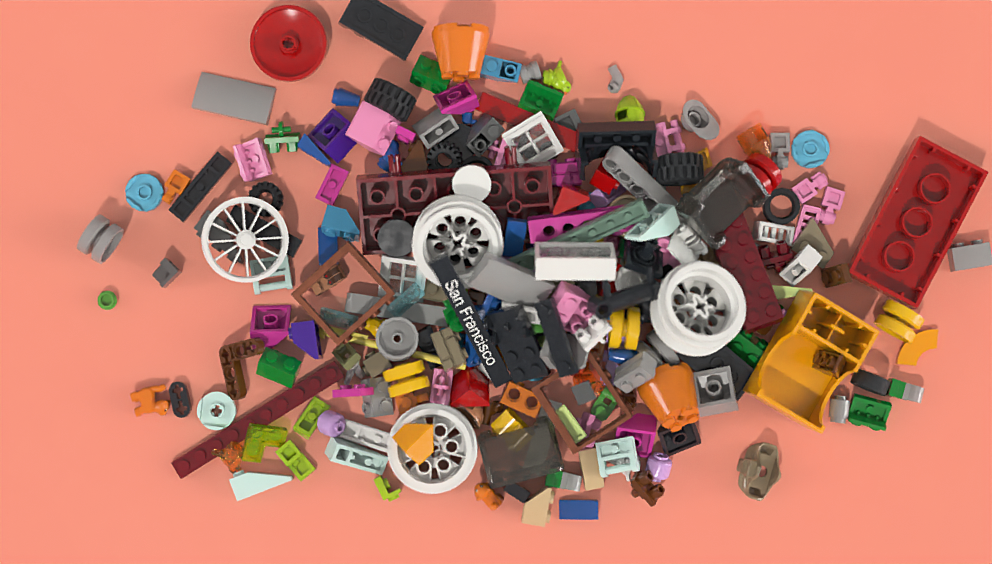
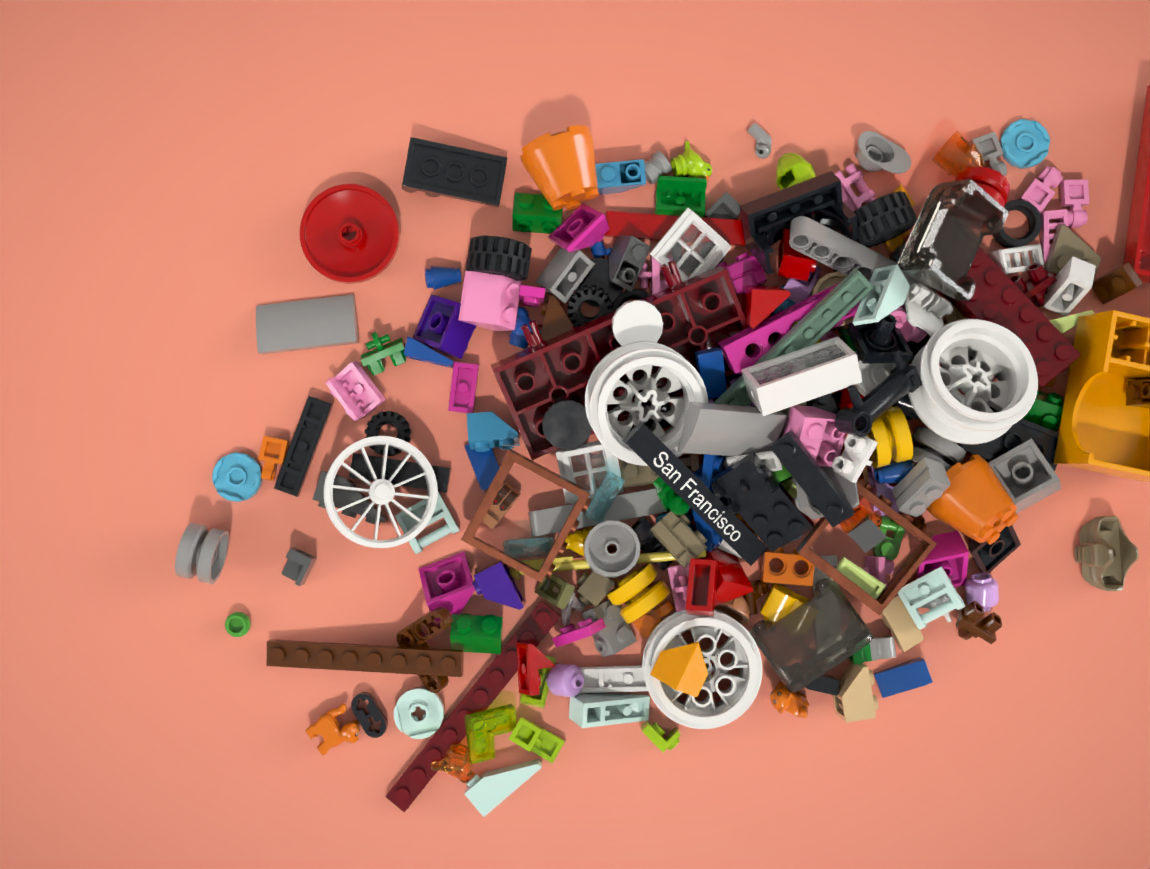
camera: 20 degrees left, 0 degrees up
(191, 356) = (365, 658): none -> reddish brown plate
(309, 399) = (528, 662): none -> red slope
(451, 388) = (701, 587): none -> red brick

